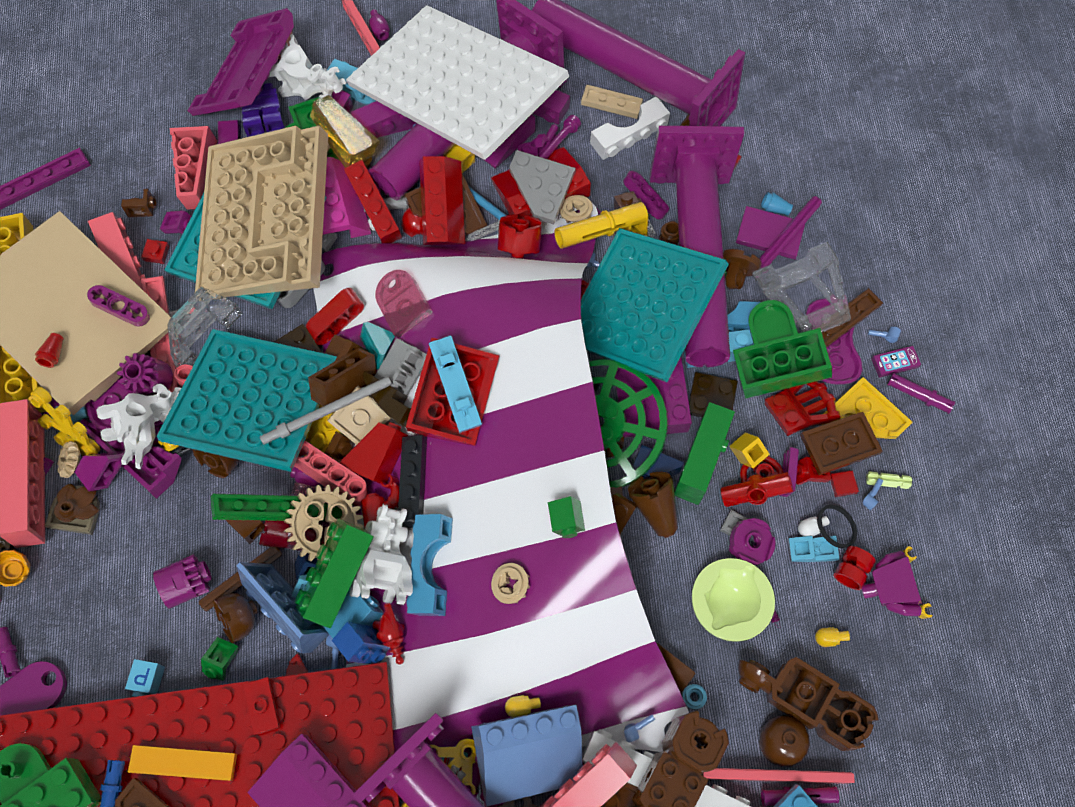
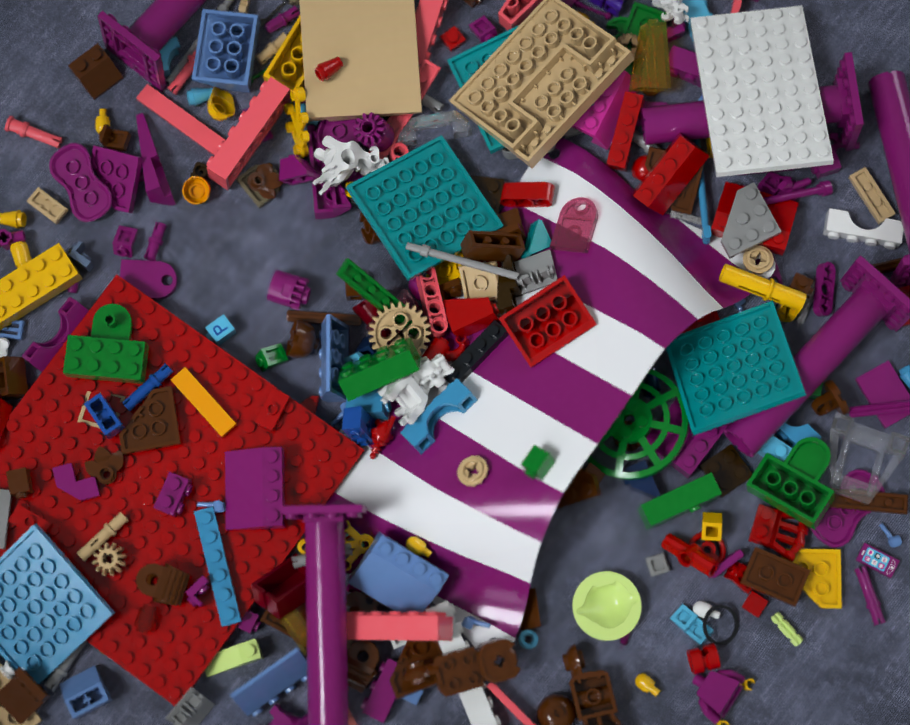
camera: 45 degrees right, 10 degrees up
(68, 459) = (283, 147): tan gear -> none
(114, 297) = (394, 56): magenta beam -> none
(455, 384) = (552, 318): medium azure hinge -> none
(519, 235) = (698, 246): red brick -> none
(656, 502) = (616, 503): reddish brown cone -> none
(670, 233) = (809, 329): reddish brown brick -> none
(740, 544) = (666, 585): magenta plate -> none
(869, 501) = (758, 630): medium blue hand -> none

